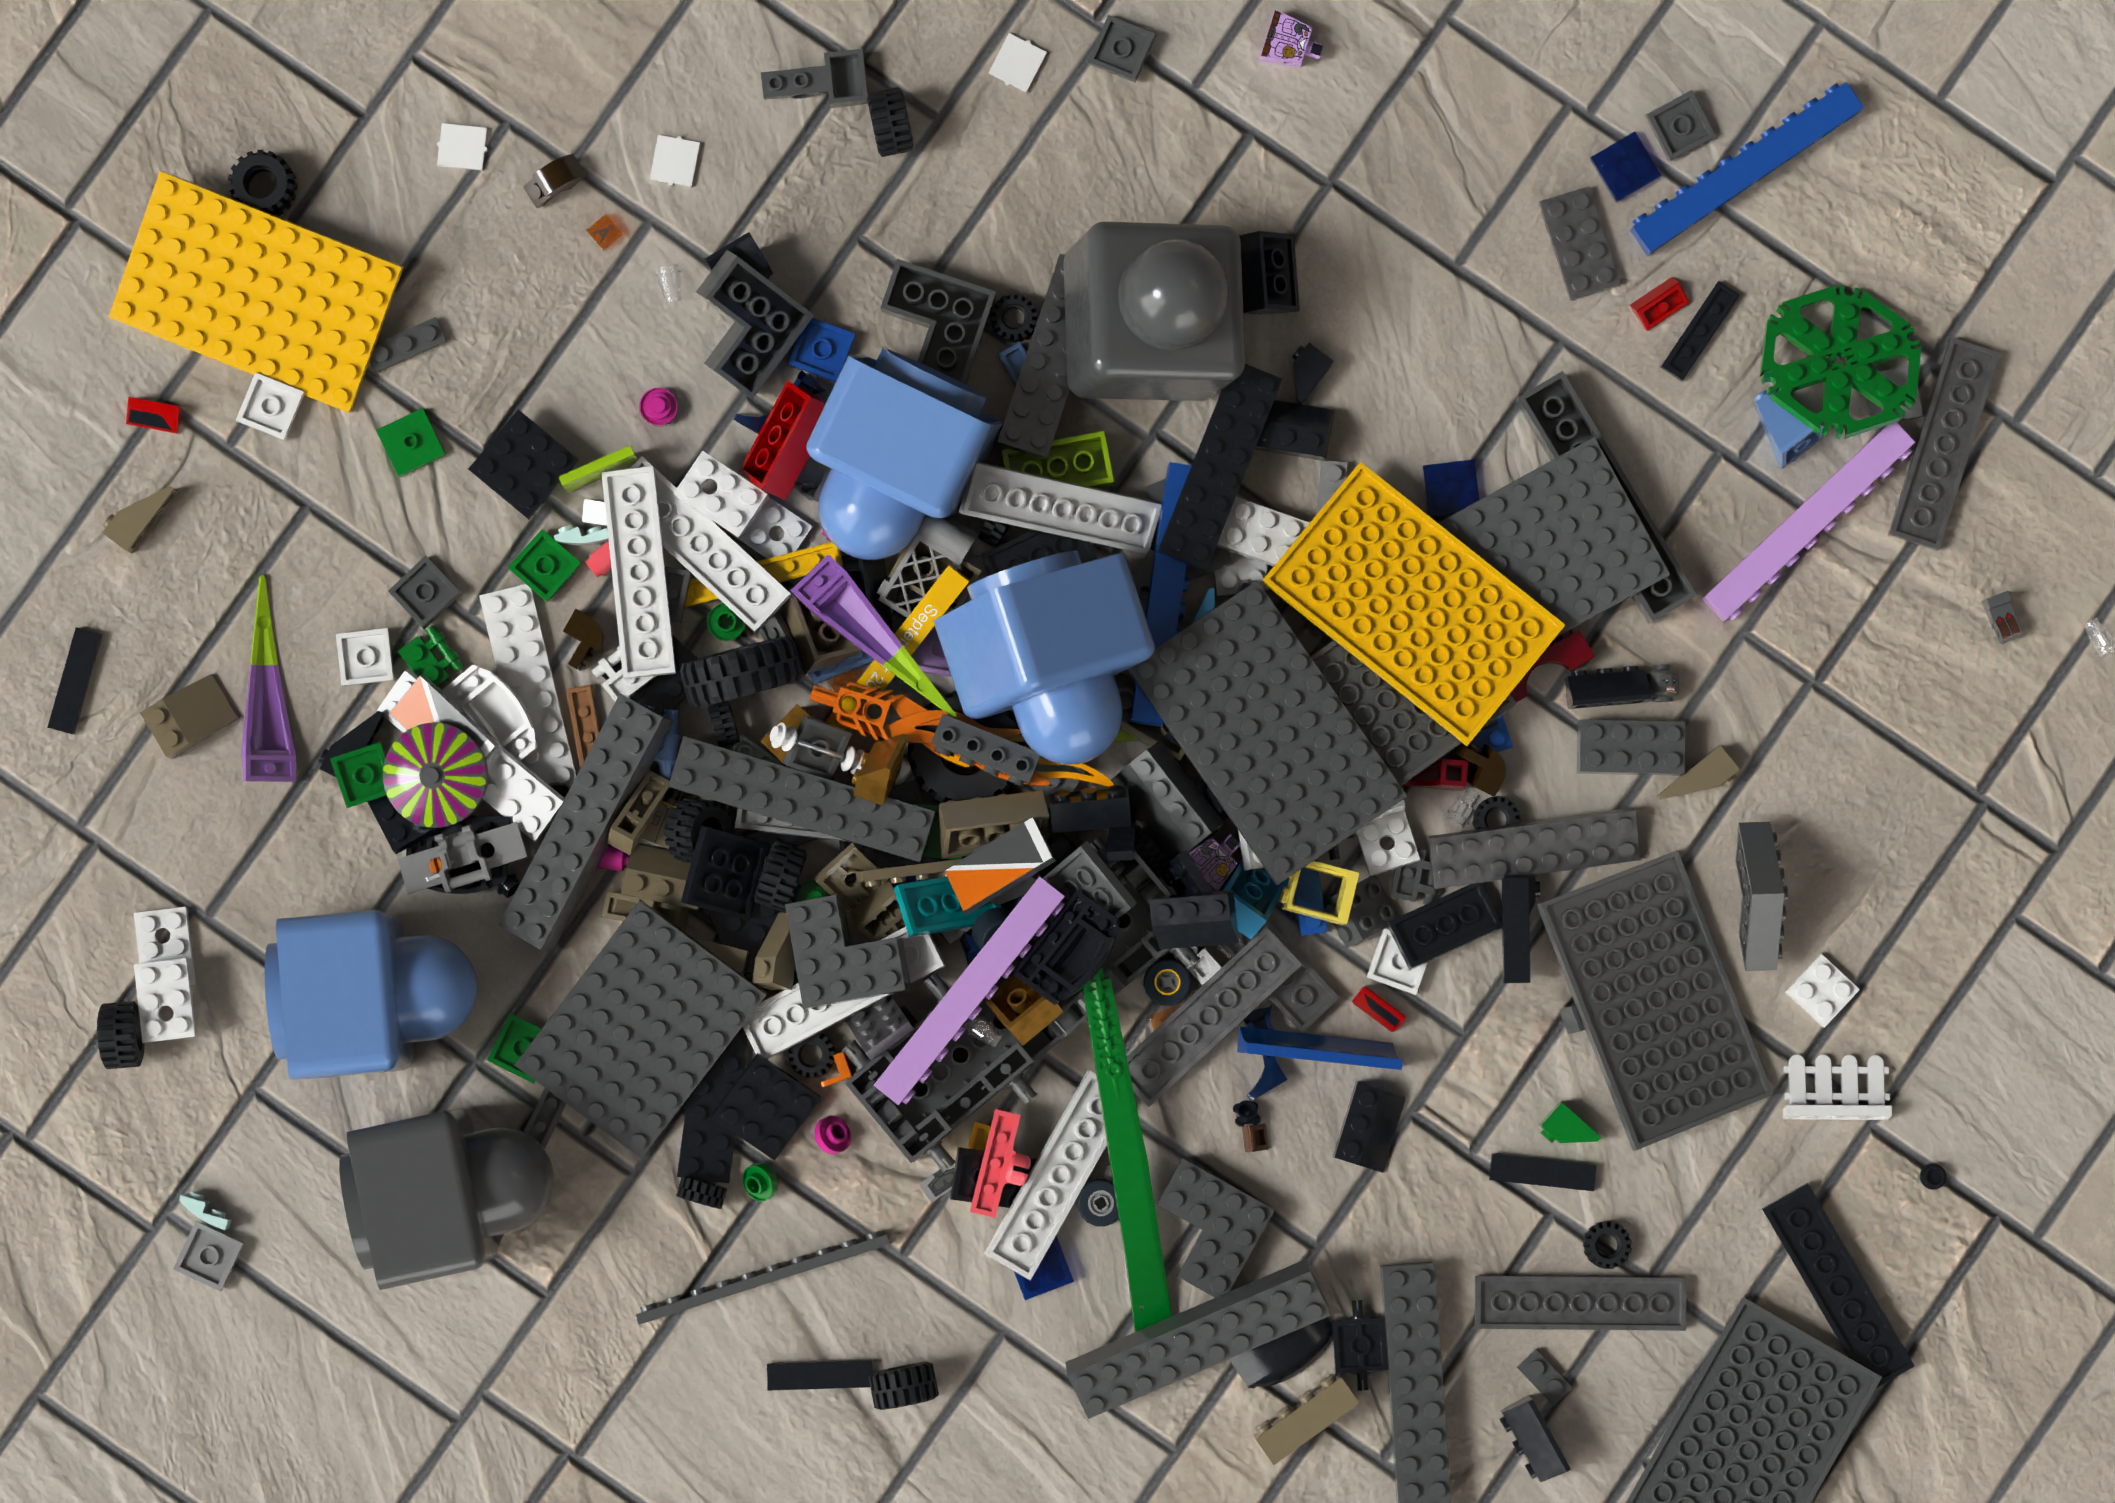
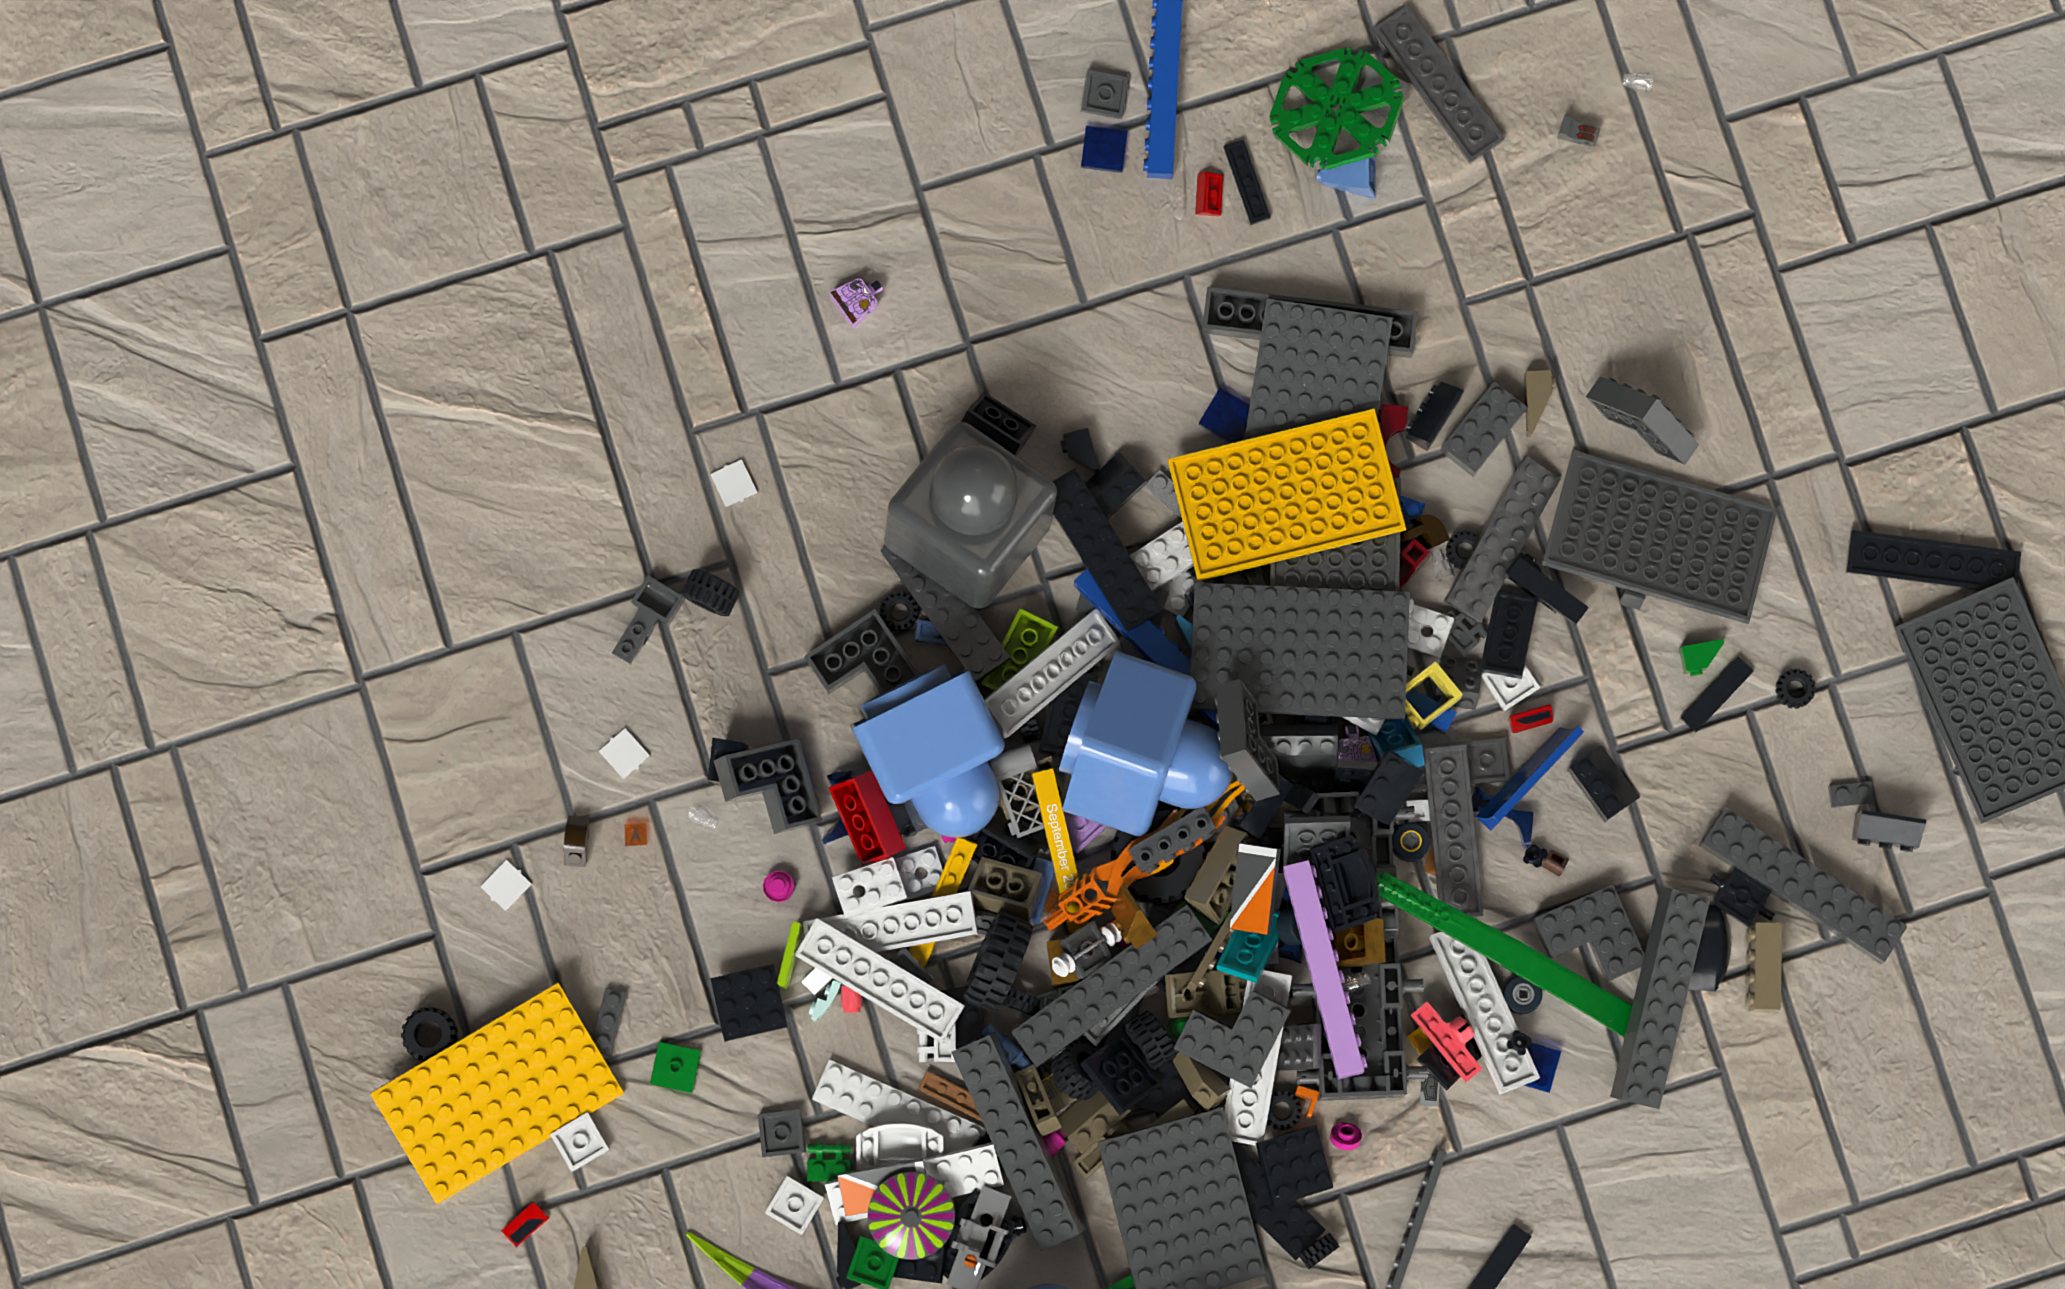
camera: 50 degrees left, 5 degrees down
(544, 565) = (825, 1041): green plate -> none
(590, 636) = (890, 1046): dark brown brick -> none
(725, 623) = (955, 951): green plate -> none
(760, 1181) = (1340, 1207): green plate -> none
(822, 350) = (824, 751): blue plate -> none
(842, 605) = (1003, 863): medium lavender plate -> none
(903, 1385) = (1547, 1213): black tyre -> none
(1055, 1238) = (1523, 1038): none -> black plate
(1121, 48) = (777, 409): dark grey plate -> none
(1125, 743) = (1241, 741): none -> dark grey brick
(1579, 243) = (1131, 215): flat silver plate -> none
(1580, 1303) = (1820, 734): flat silver plate -> none
(1663, 683) = (1458, 376): dark grey head -> none
(1808, 520) = (1422, 207): lavender brick -> none
(1822, 990) = (1733, 427): white plate -> none
(1849, 1093) = (1801, 477): white fence -> none
(1932, 1176) = (1906, 448): black plate -> none

